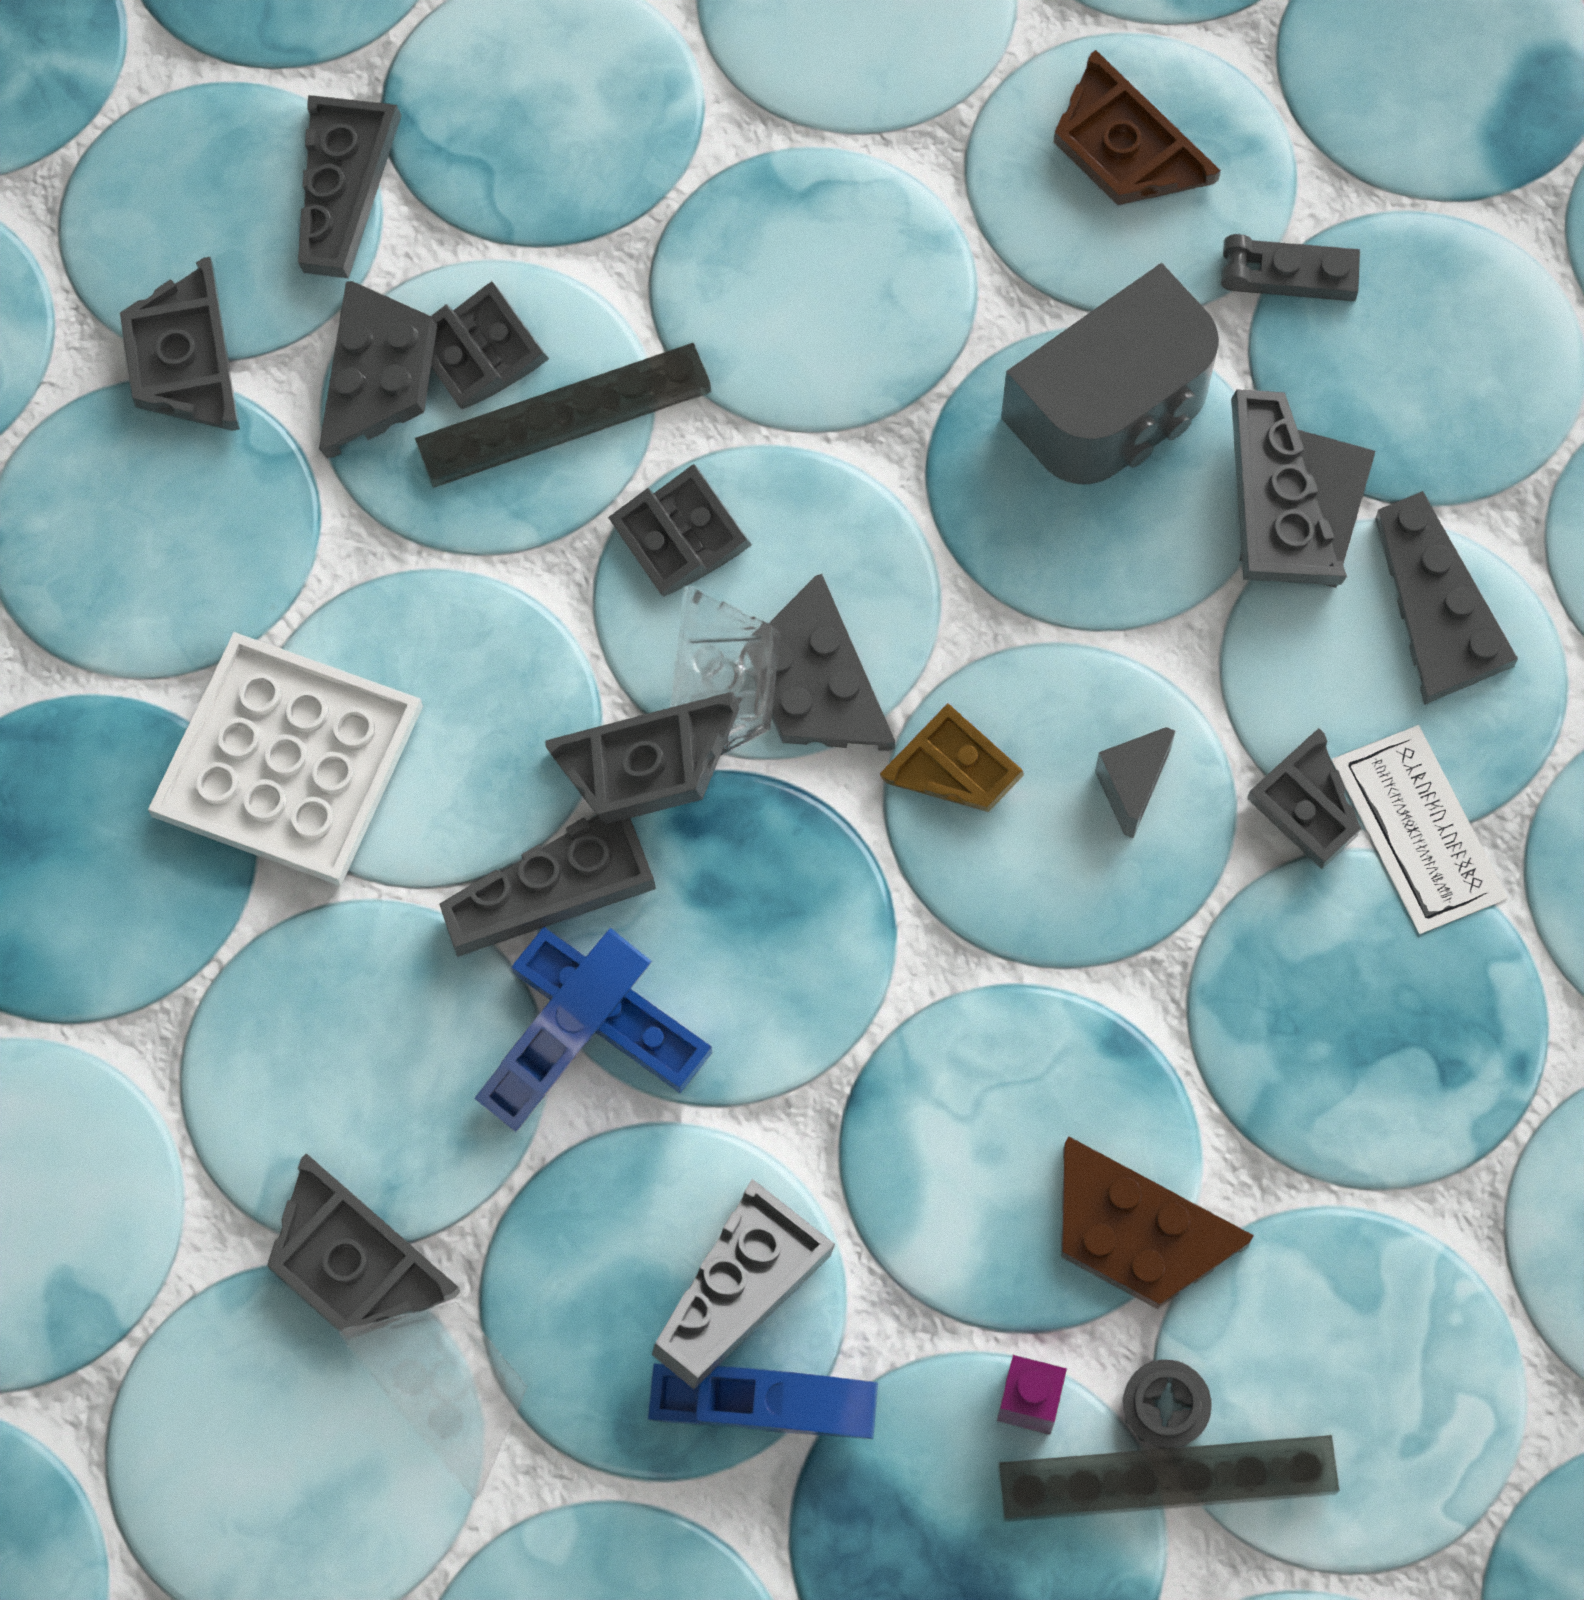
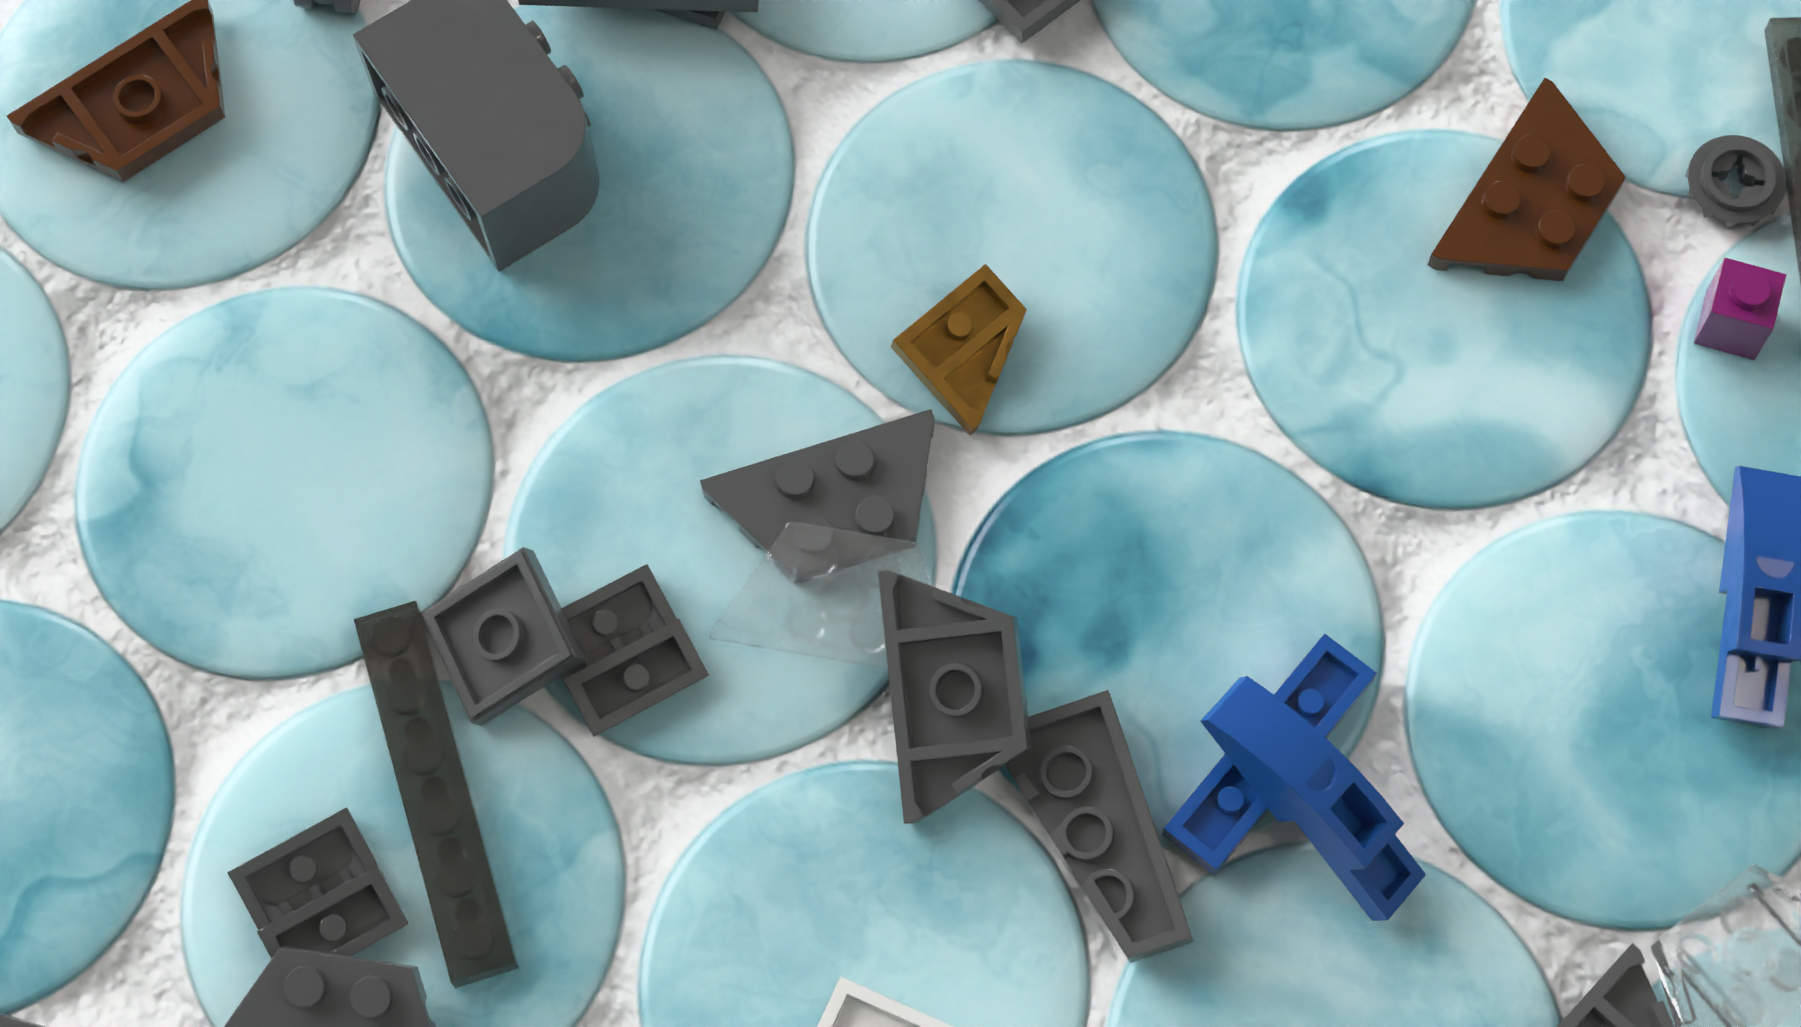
camera: 85 degrees left, 0 degrees up
(682, 444) = (502, 636): none -> dark grey tile
(745, 1277) = (1627, 604): wing -> none
(1131, 773) = (998, 150): dark grey slope -> none

